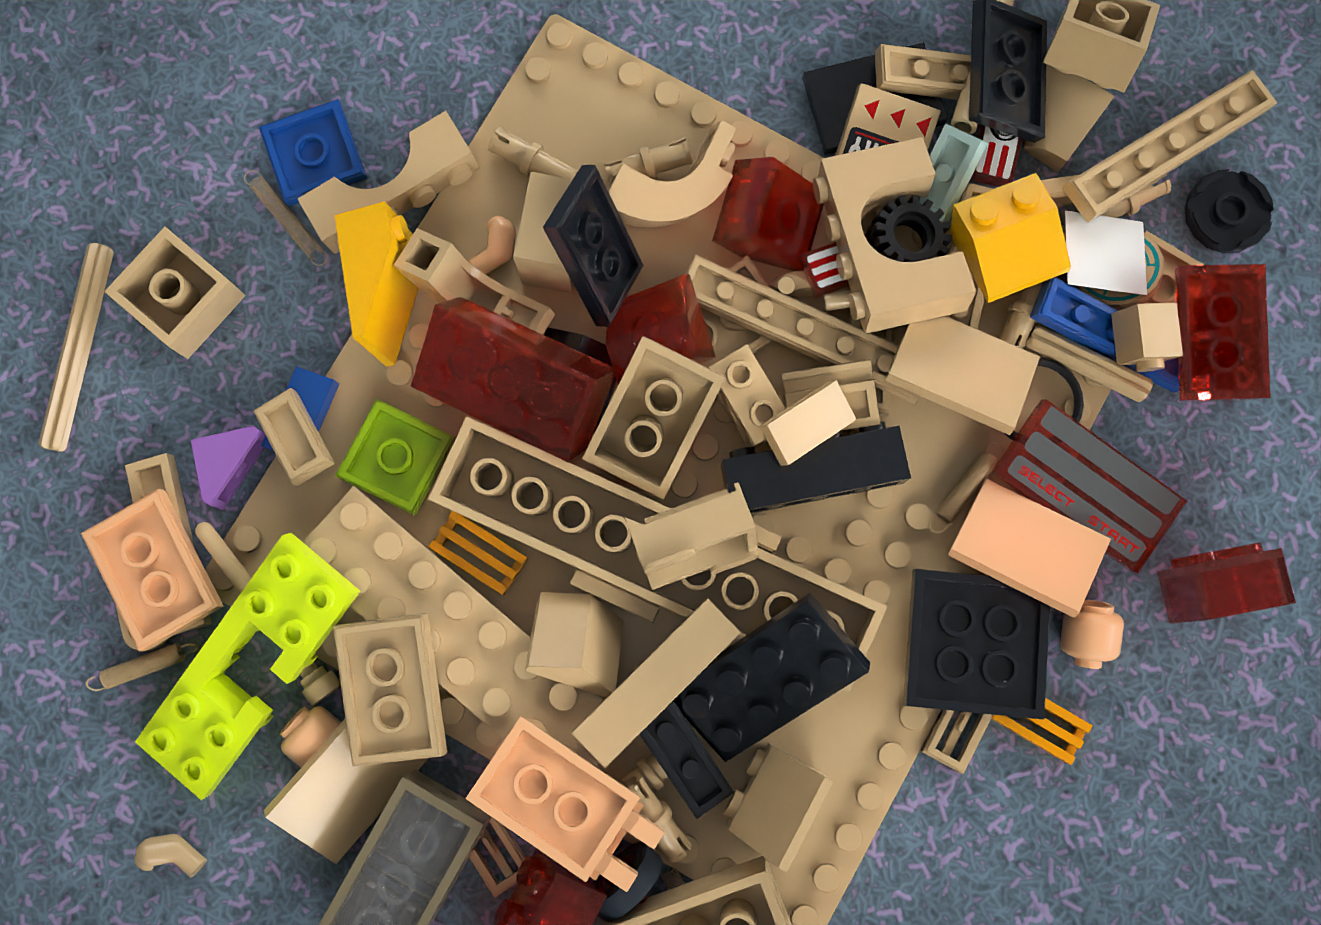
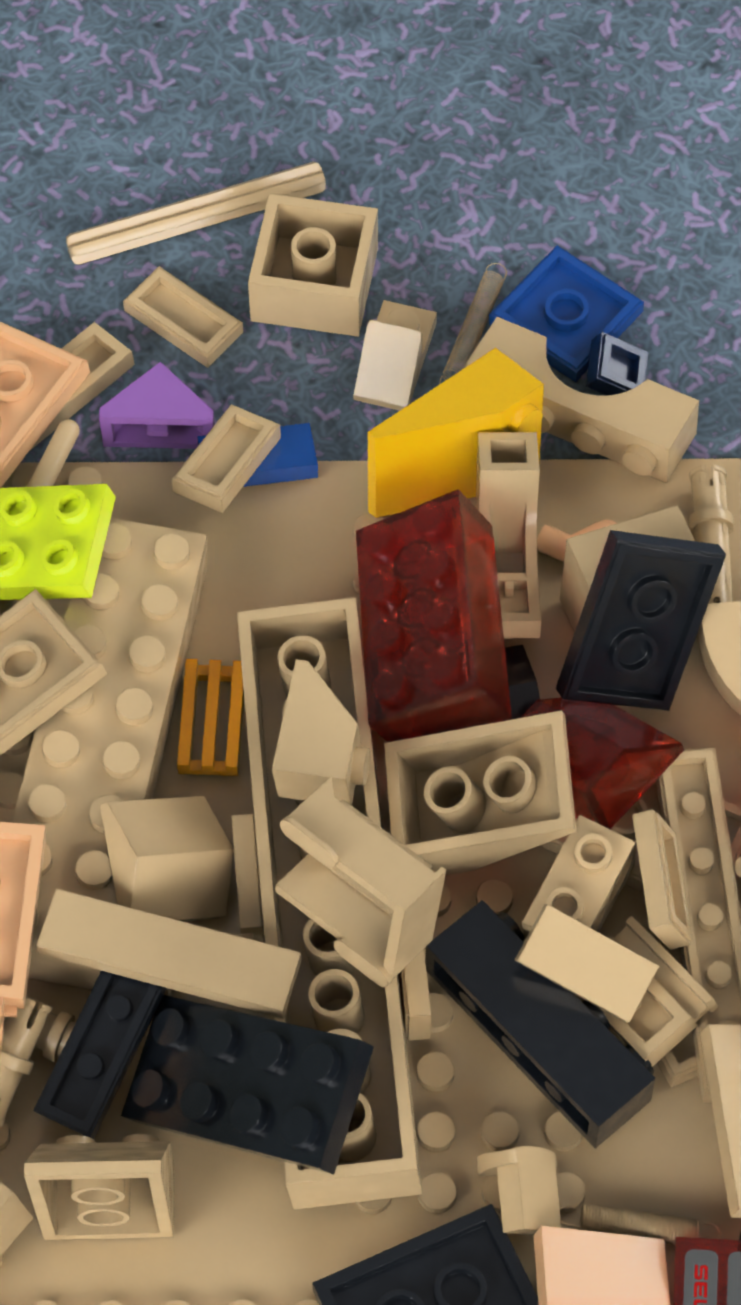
camera: 60 degrees right, 20 degrees down
(154, 401) = (183, 316): none -> tan tile
(276, 280) = (393, 355): none -> tan slope
(378, 146) = (615, 365): none -> dark blue tile
(395, 457) = (266, 567): lime tile -> none
(567, 503) = (317, 741): none -> tan slope
(773, 341) = (662, 879): none -> tan tile
(913, 541) = (525, 1187): none -> tan tile

